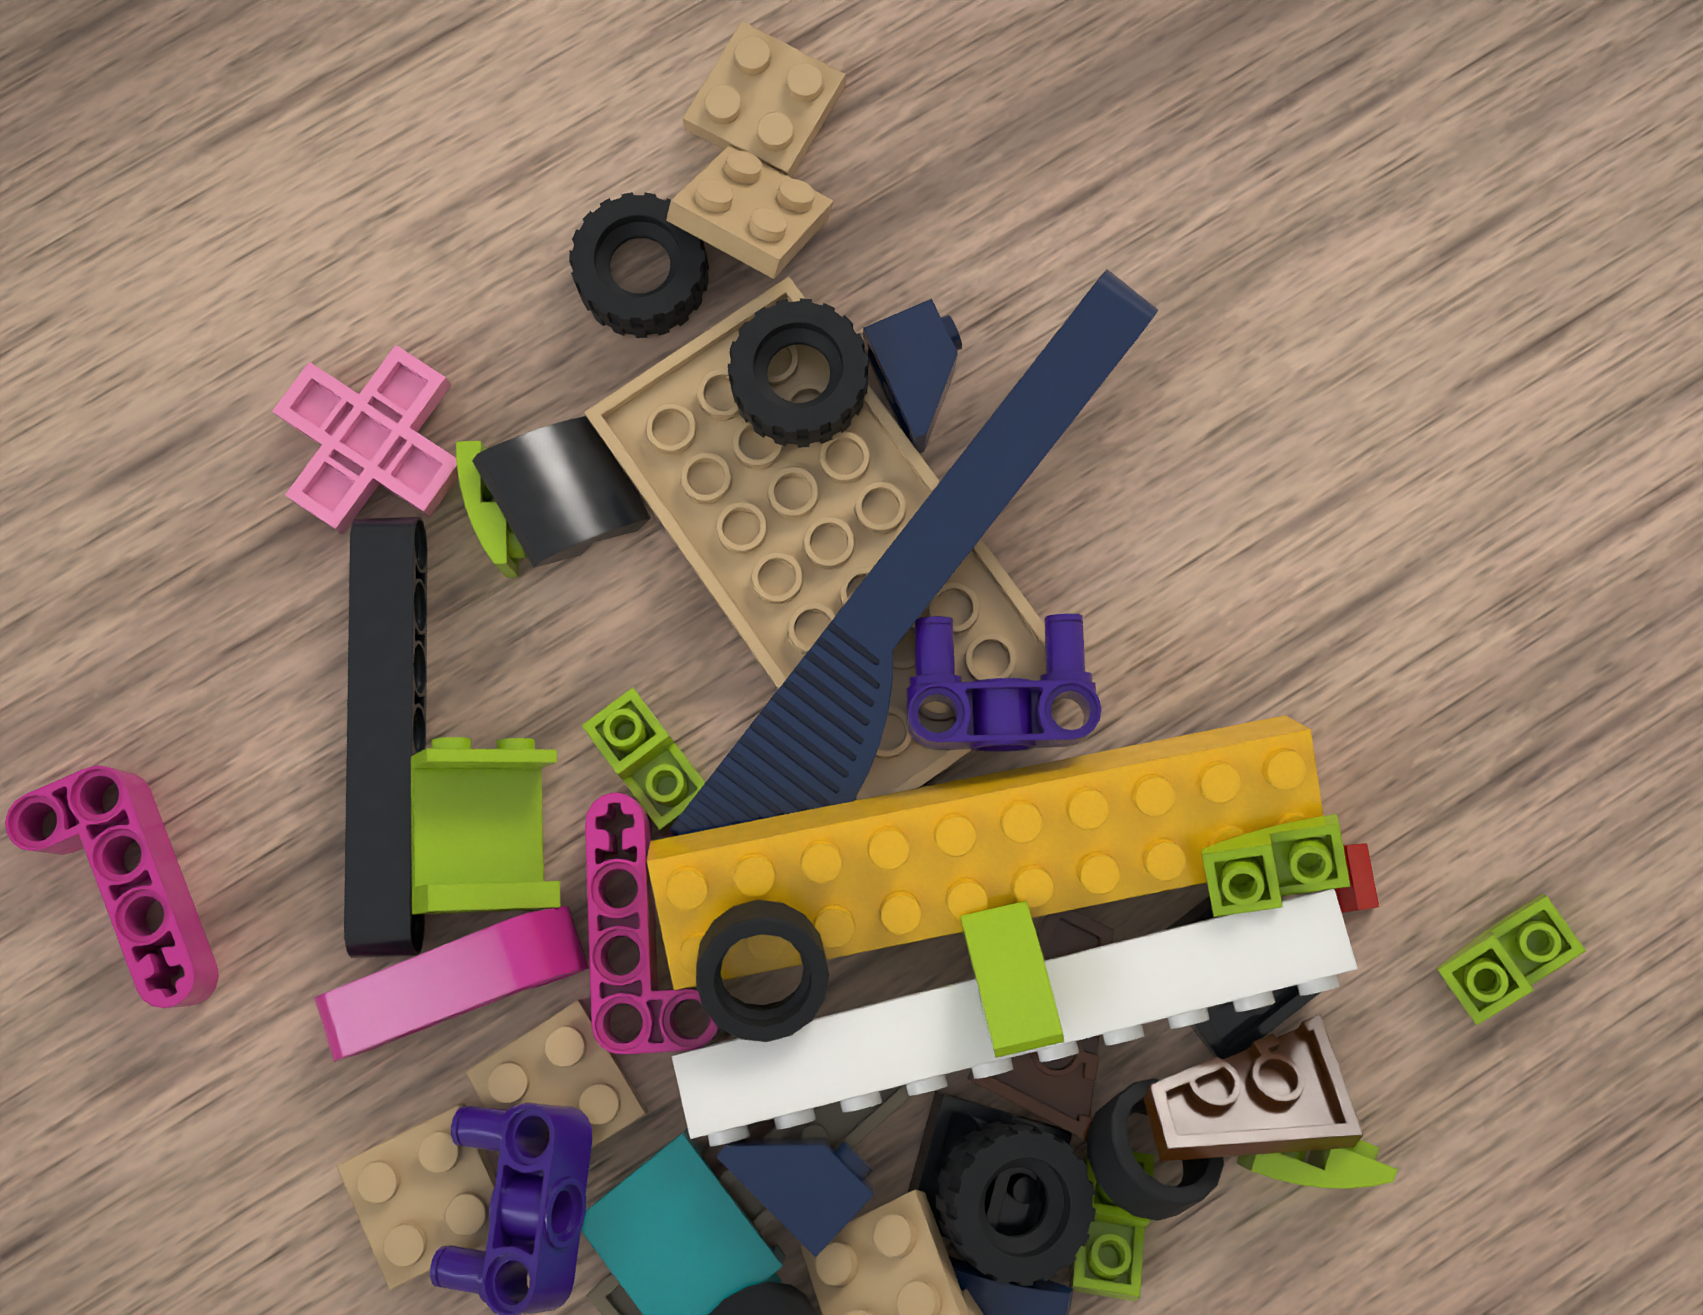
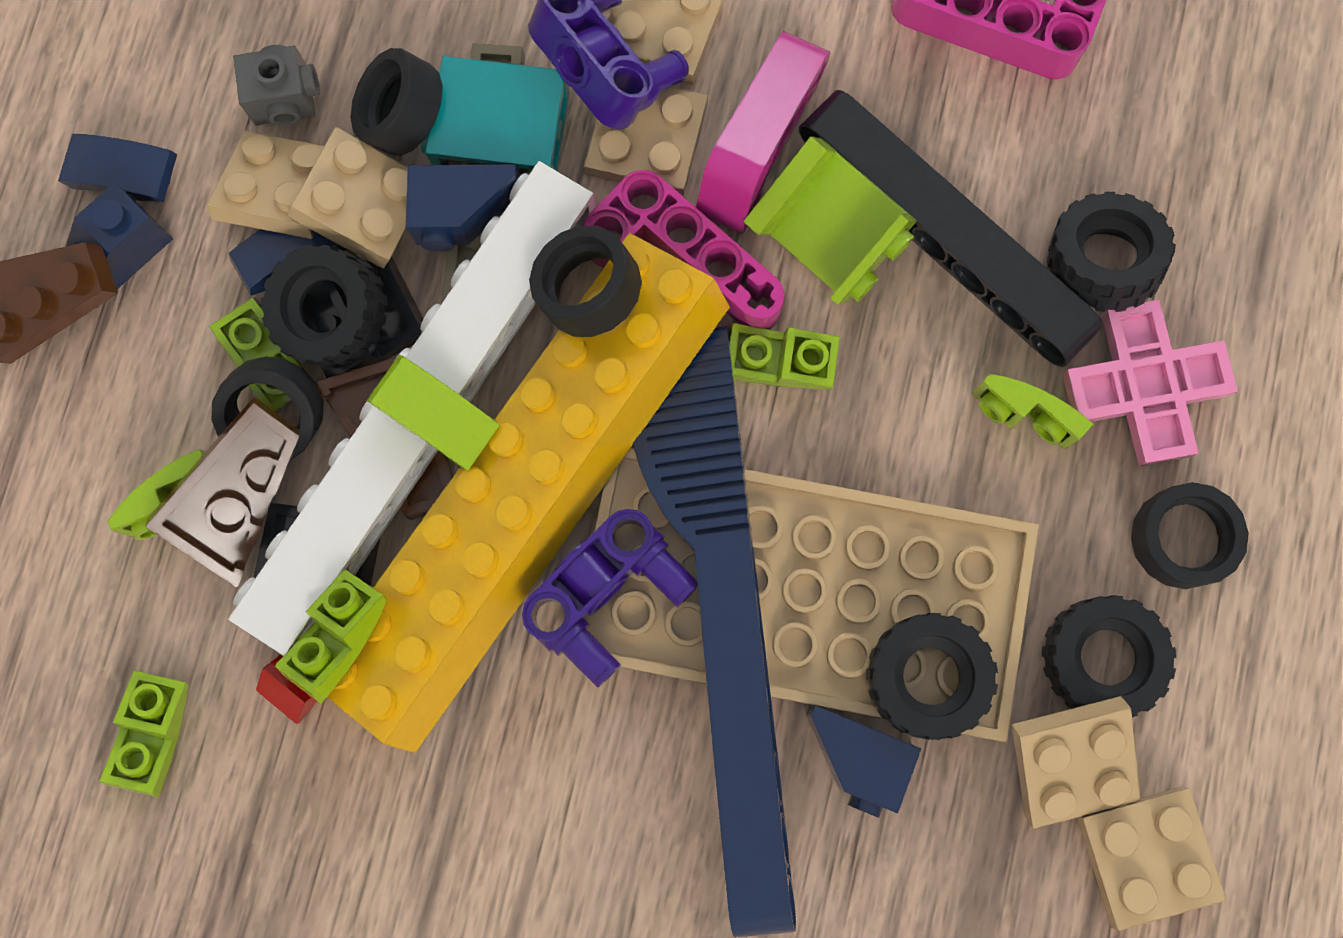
camera: 140 degrees right, 0 degrees up
(230, 577) = (1116, 216): none -> black tyre
(449, 256) = (1222, 511): none -> black tyre
(560, 490) = (1000, 459): black slope -> none

